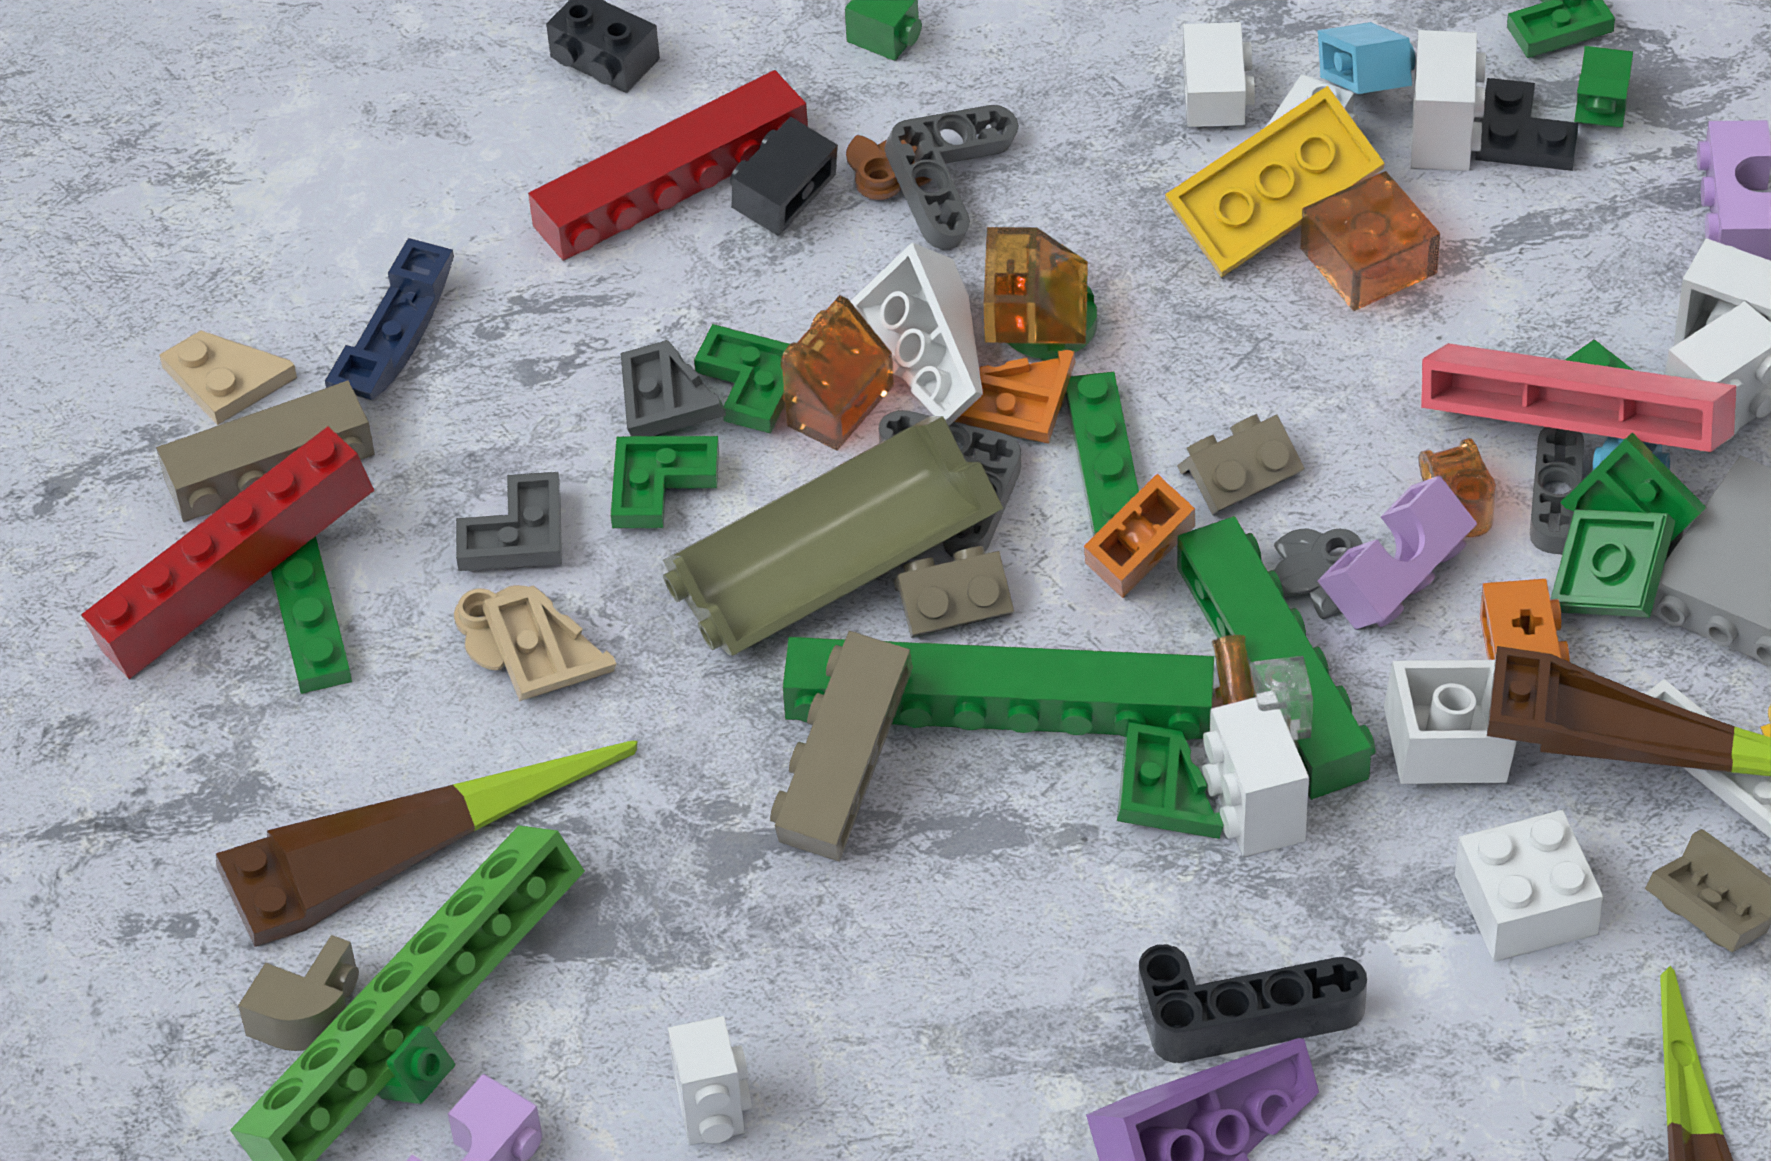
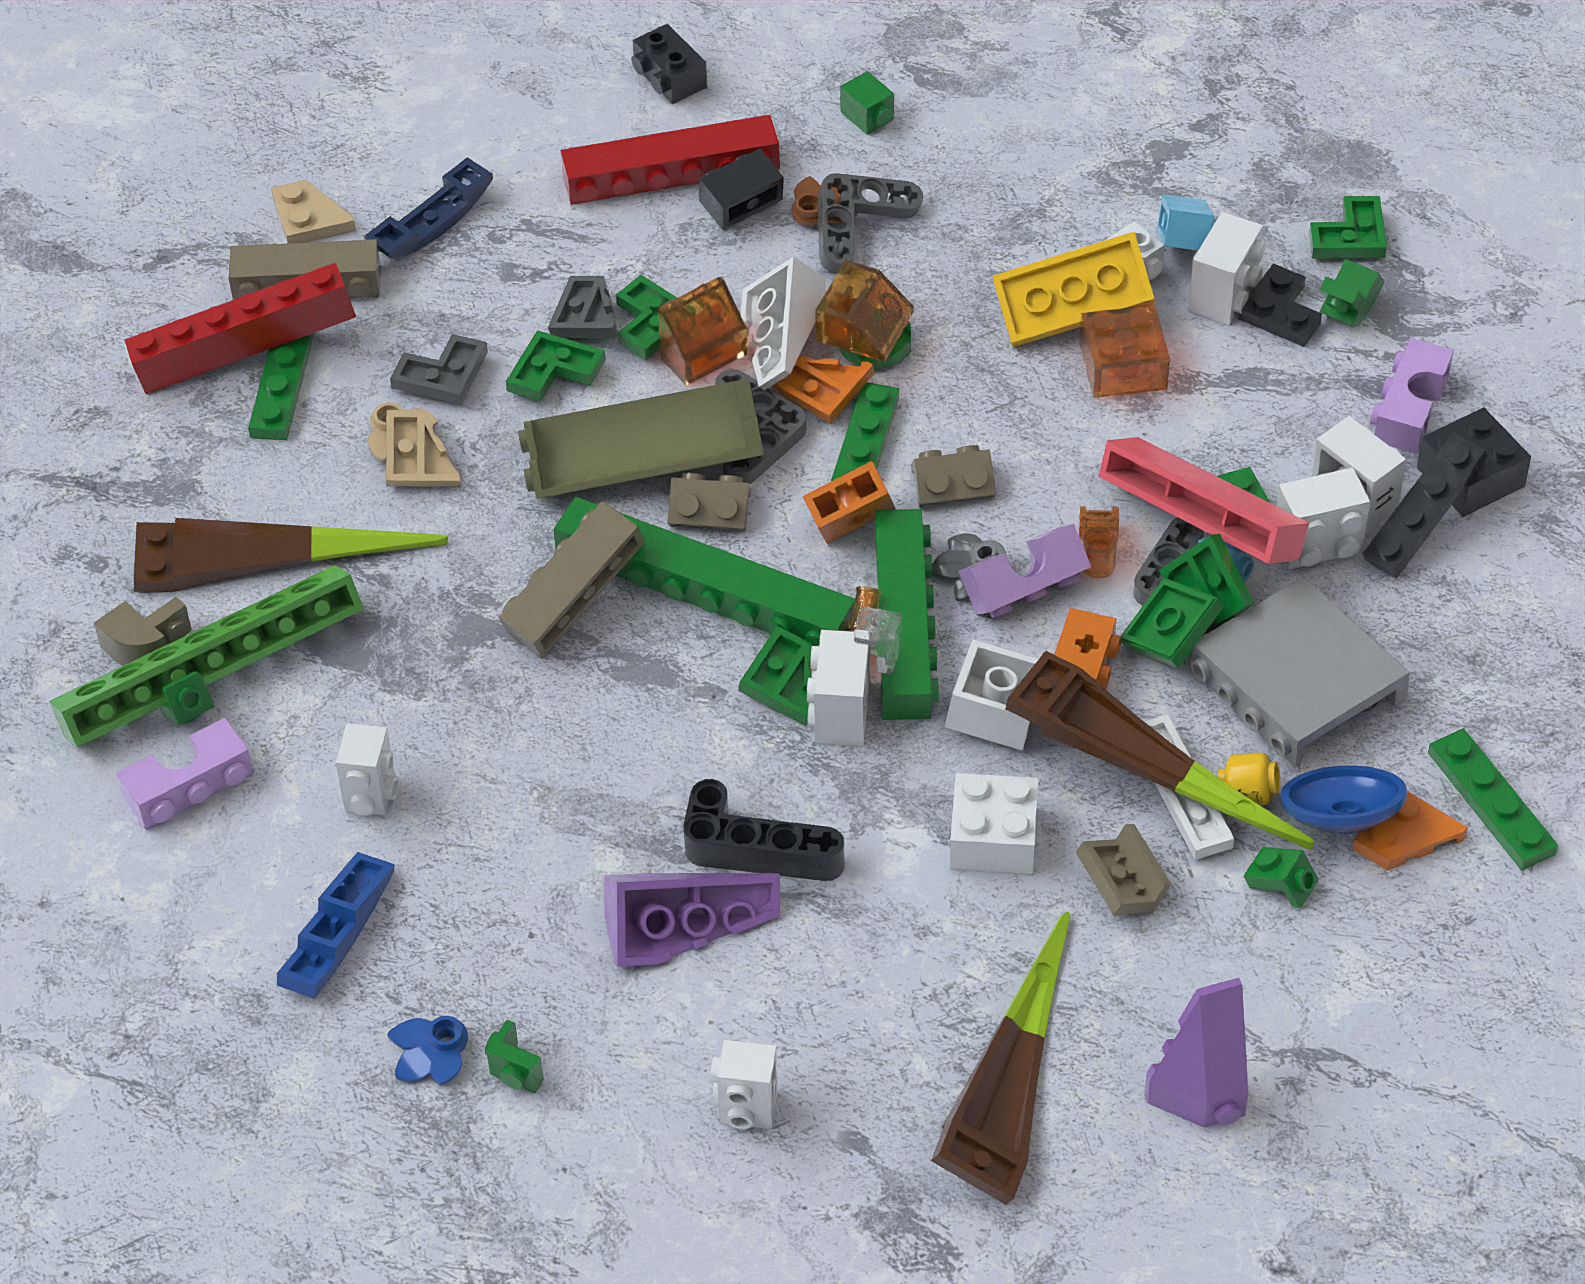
camera: 20 degrees right, 0 degrees up
(1215, 74) = (1076, 205): white brick -> none

